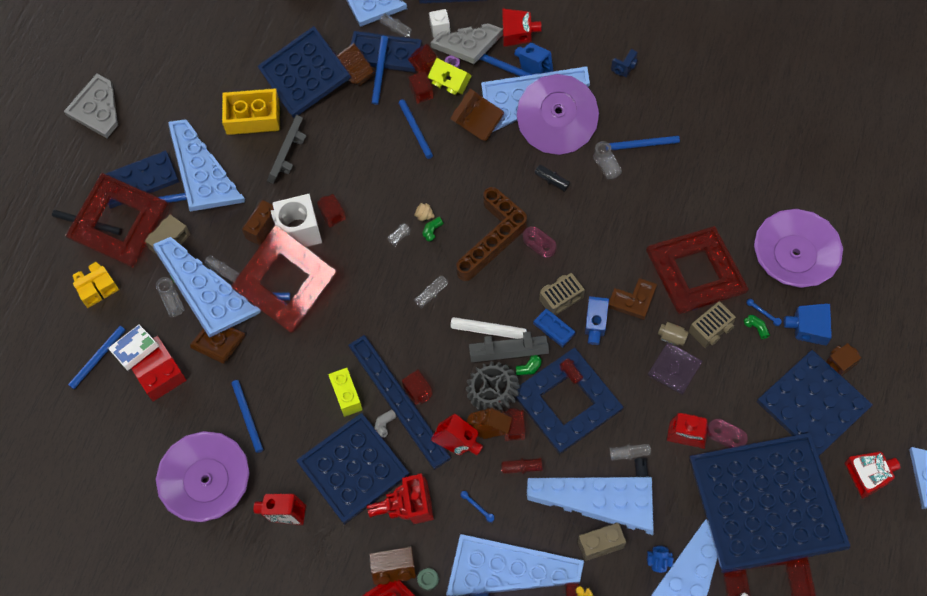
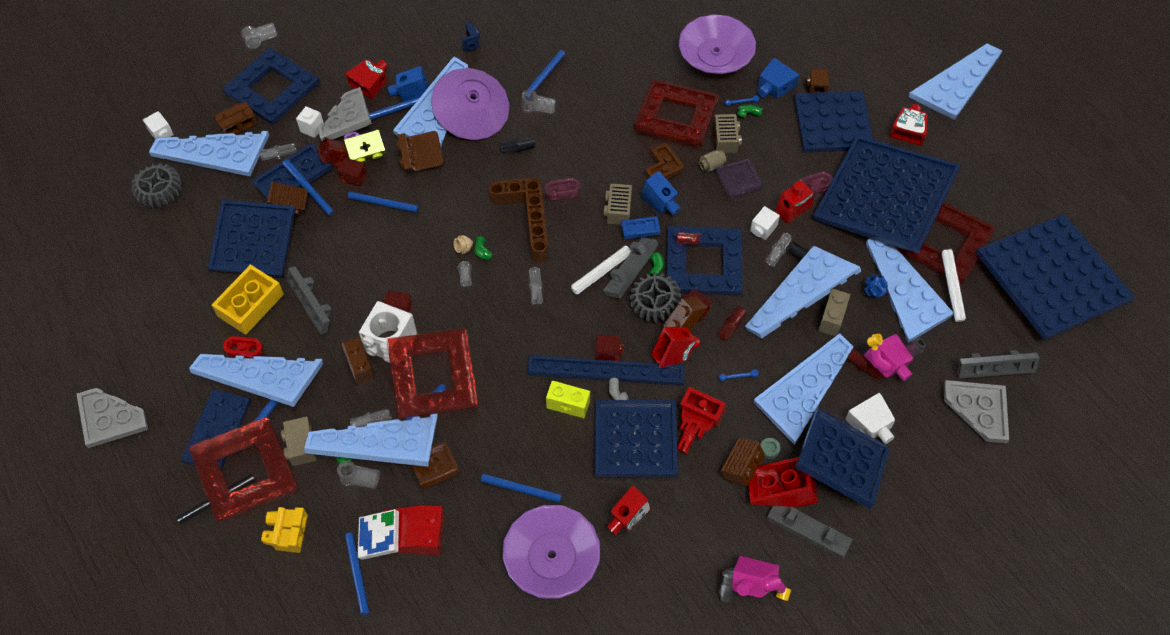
camera: 55 degrees left, 5 degrees down
(214, 142) = (244, 347): none -> red plate
(644, 421) = (764, 223): none -> white brick

